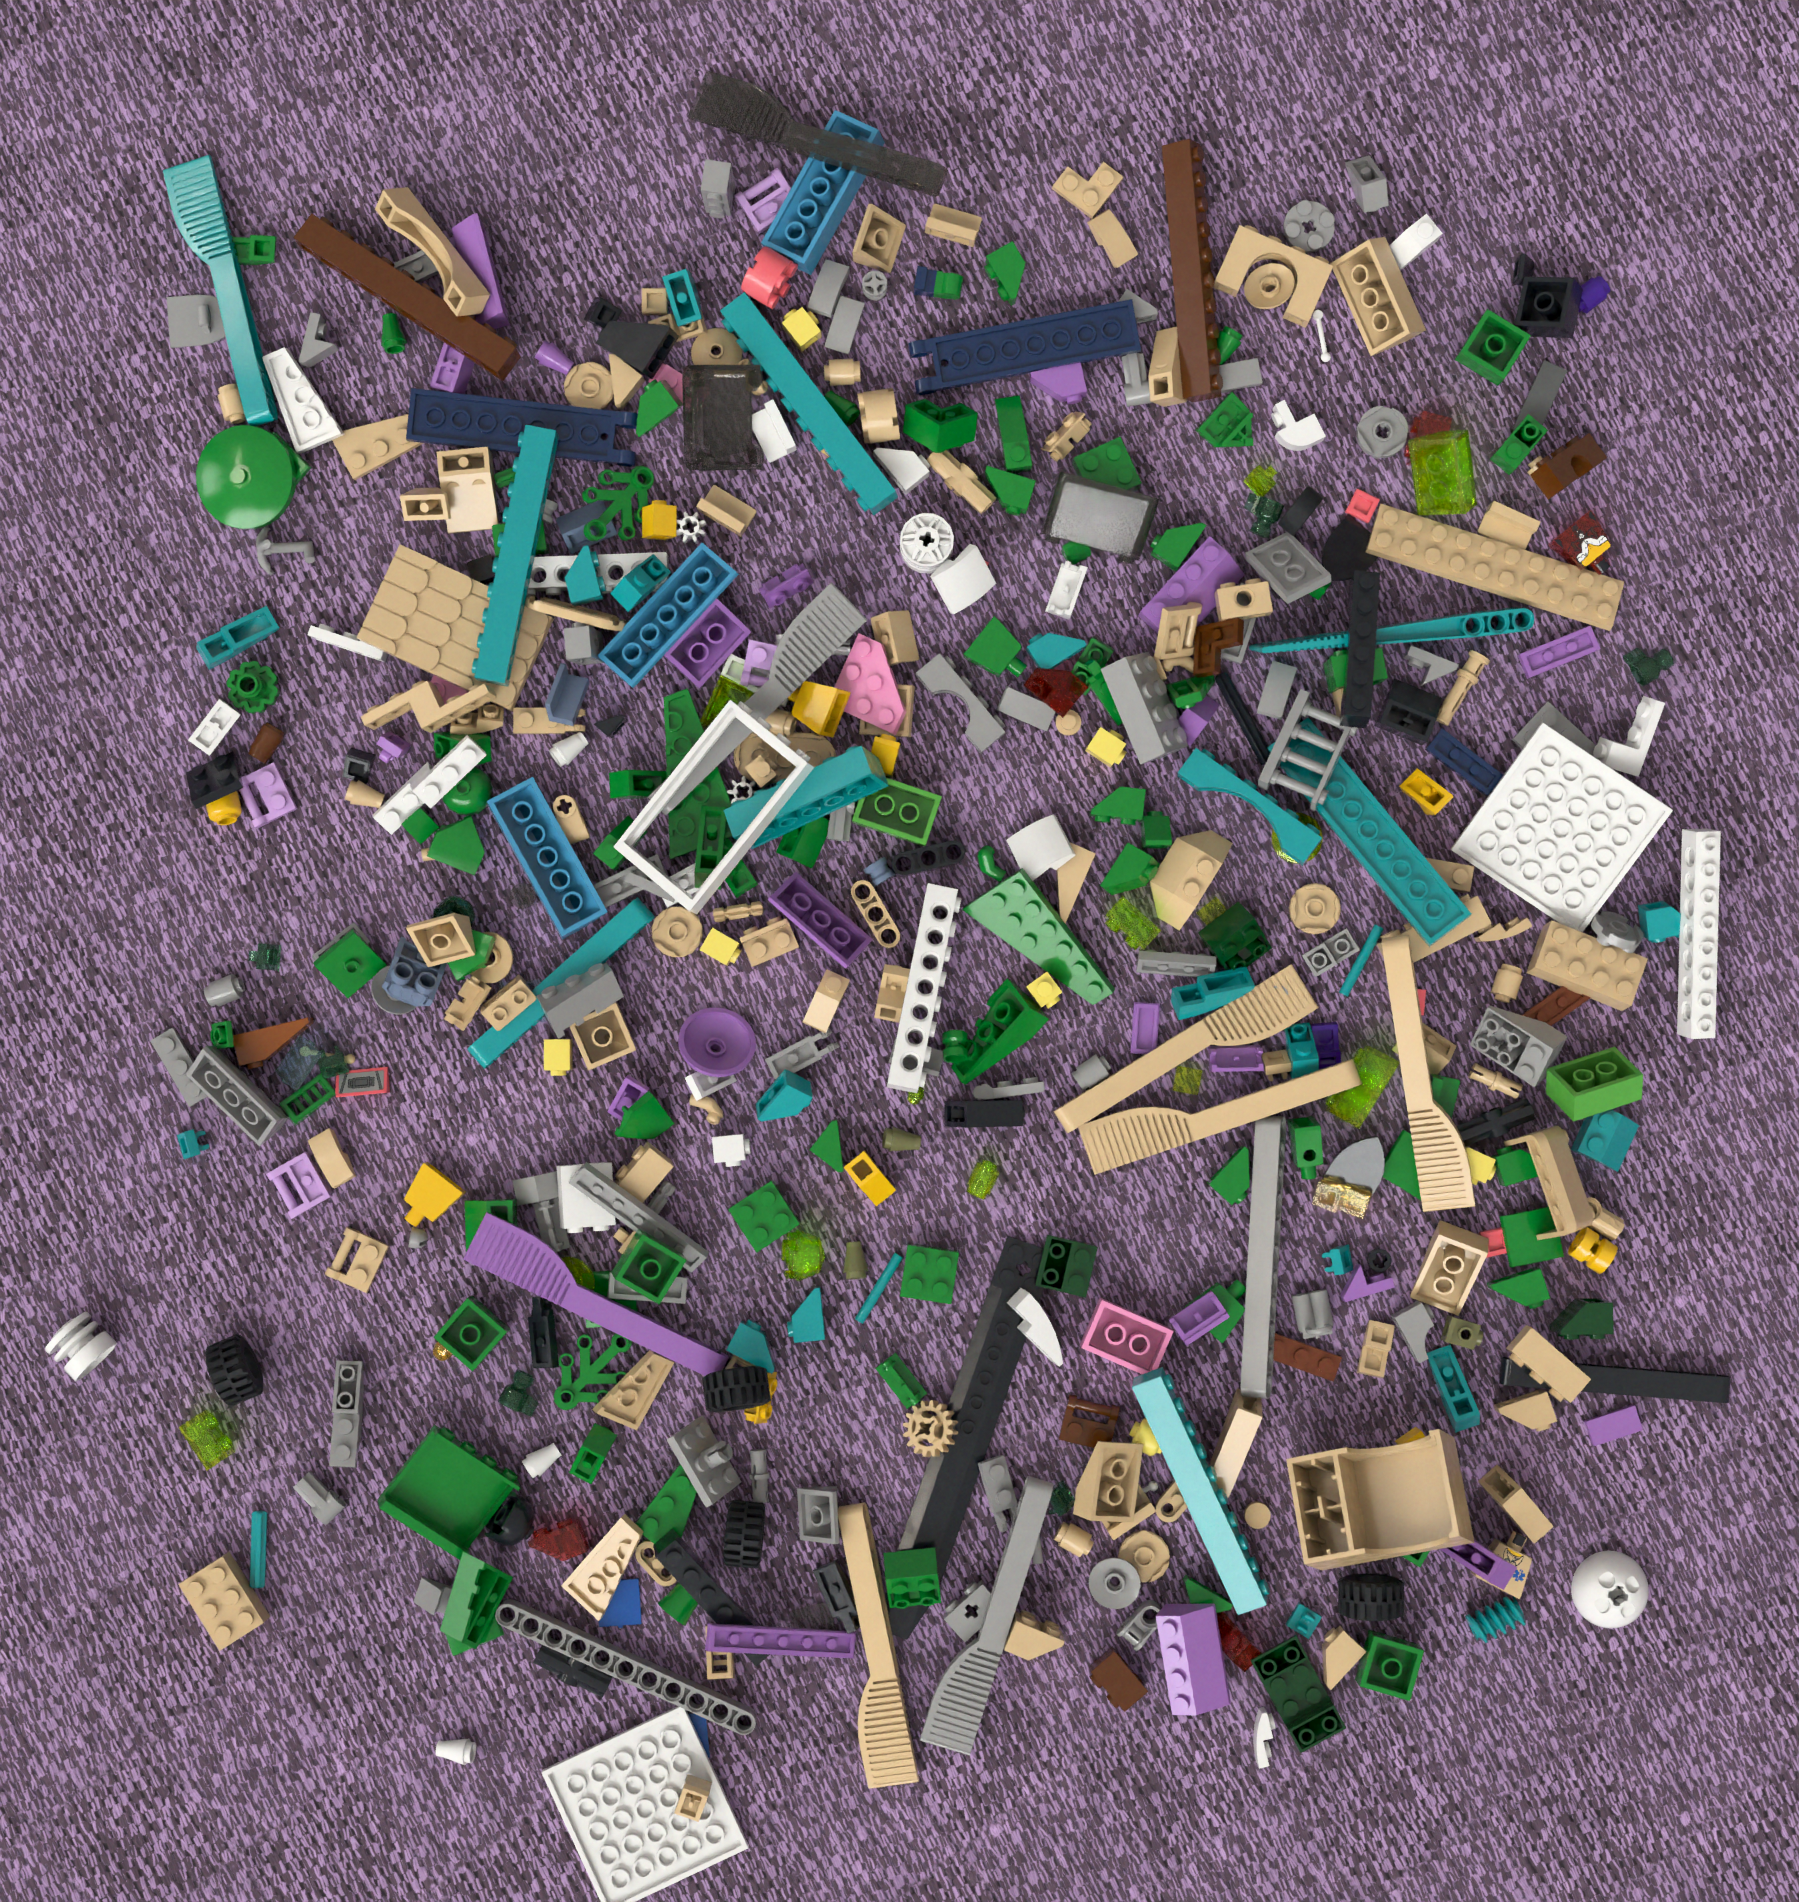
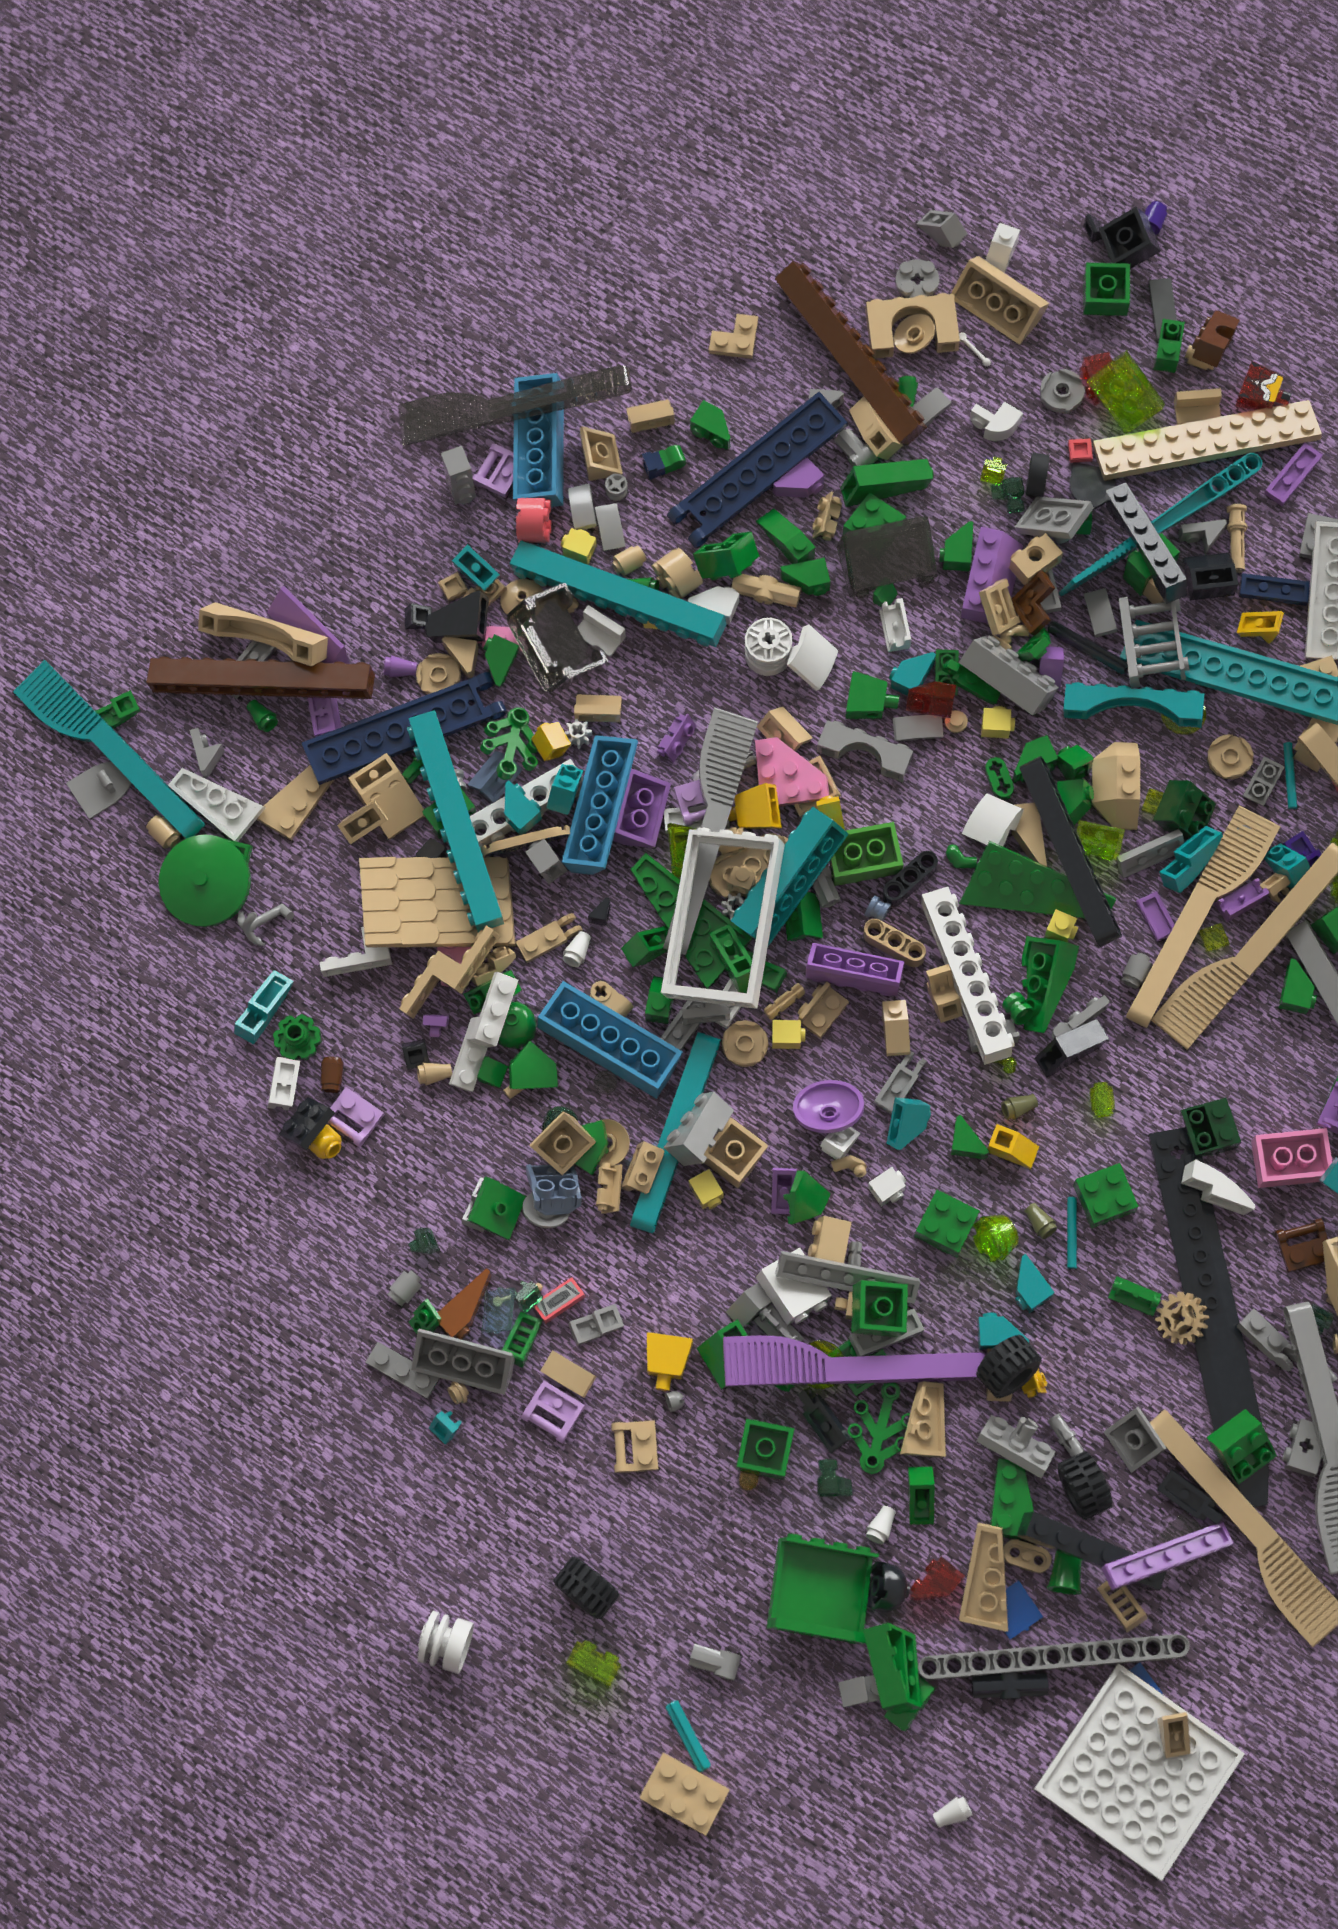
camera: 25 degrees left, 15 degrees down
(220, 1119) = (458, 1392): none -> tan plate
(347, 1413) = (699, 1576): light grey slope -> none
(384, 1125) = (596, 1324): none -> light grey slope
(566, 697) = (554, 909): sand blue panel -> none
(1082, 805) = (1004, 776): none -> green beam
(1093, 924) = (1070, 851): none -> black beam
(1113, 237) = (773, 359): tan slope -> none
(1146, 431) = (885, 480): none -> green slope
(1228, 424) = (944, 446): green slope -> none

